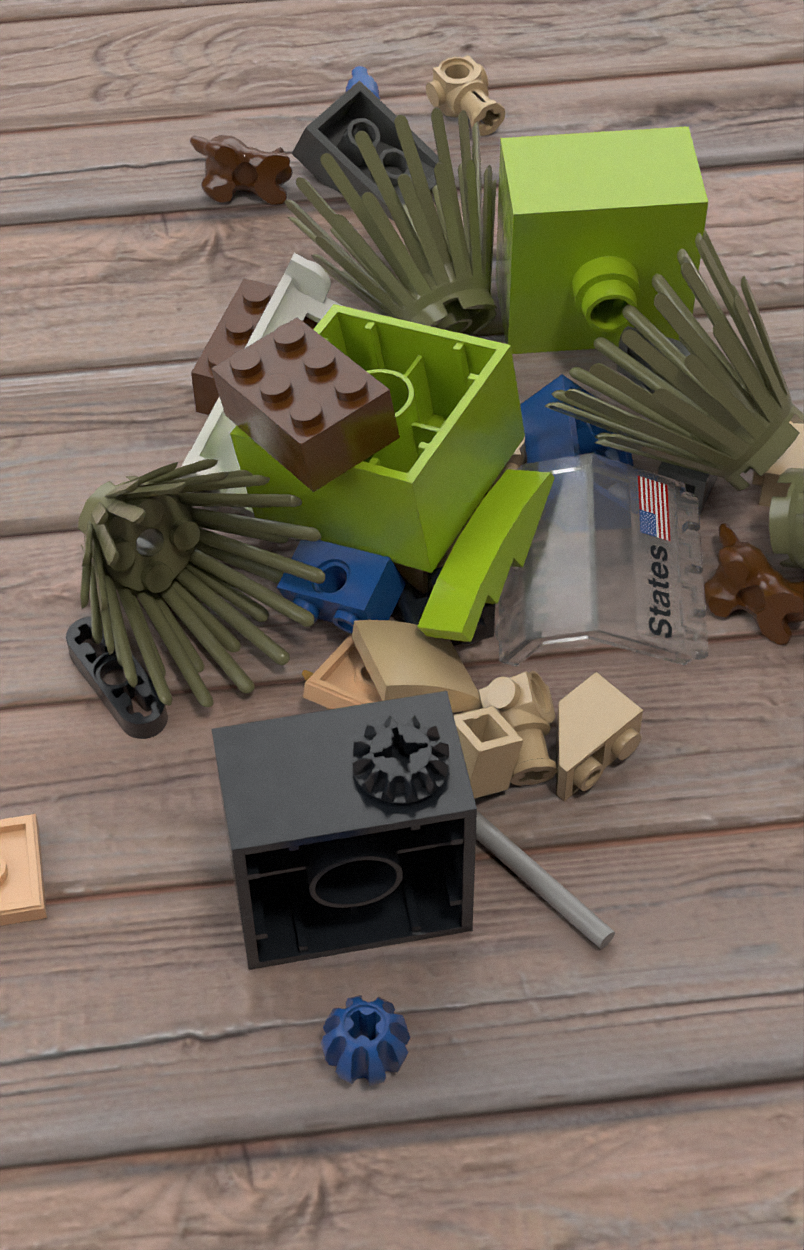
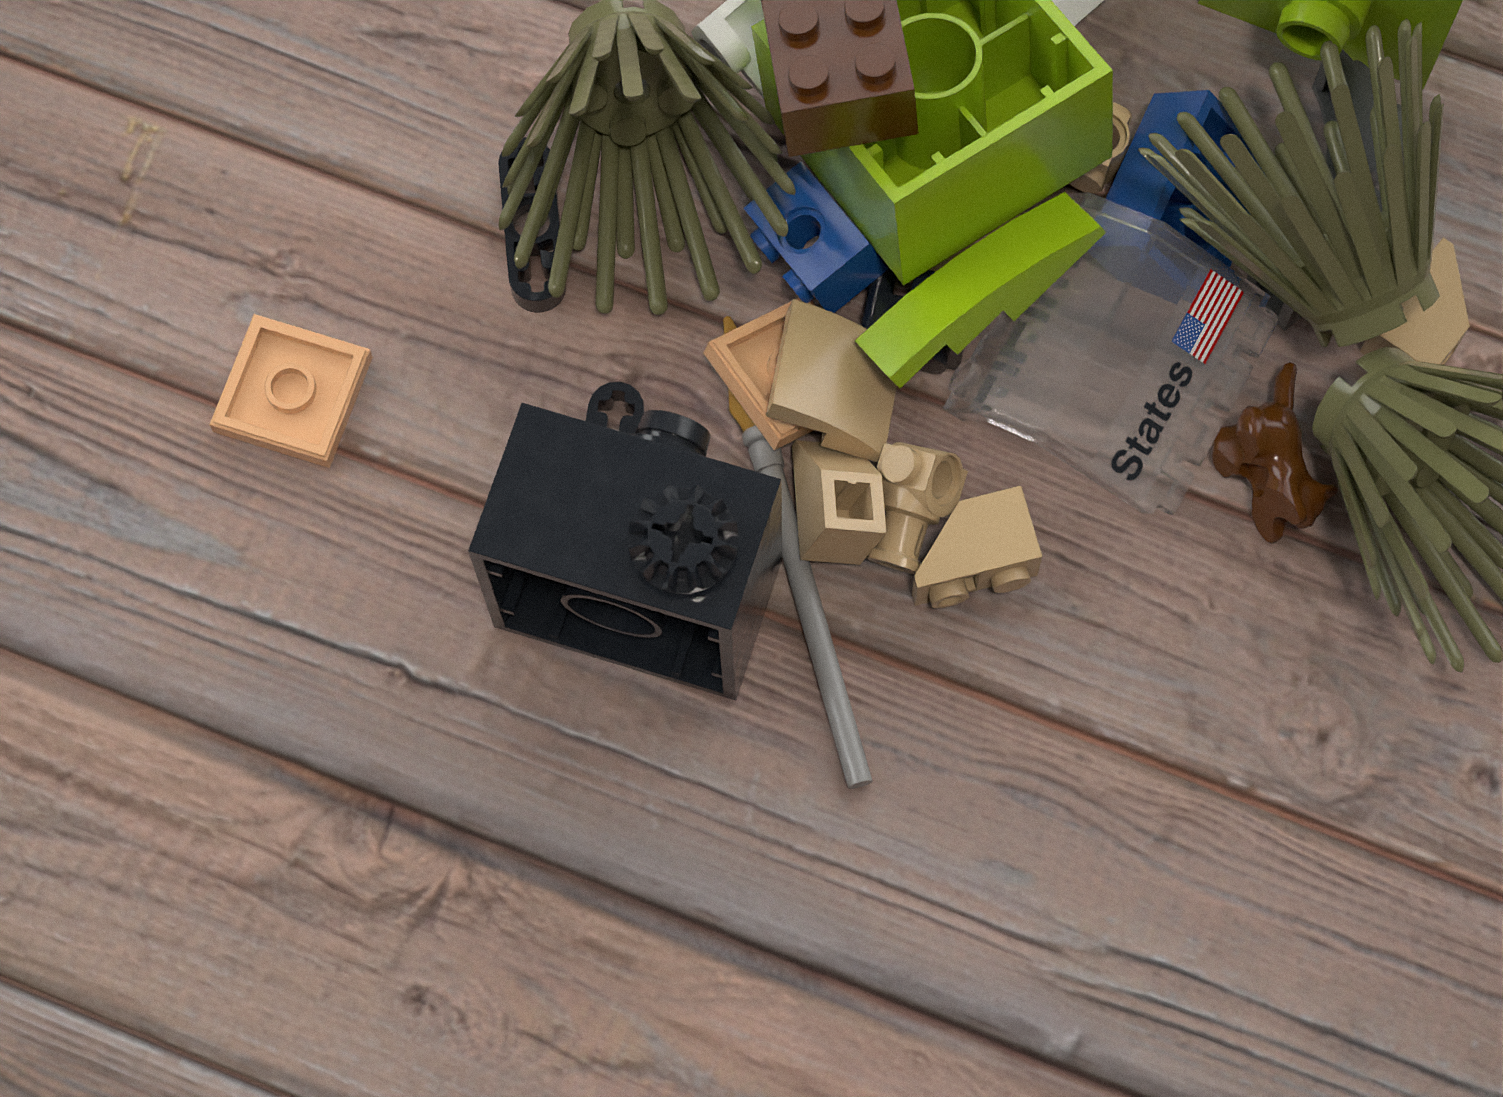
camera: 30 degrees right, 20 degrees up
(365, 1040) = (533, 765): blue piece -> none

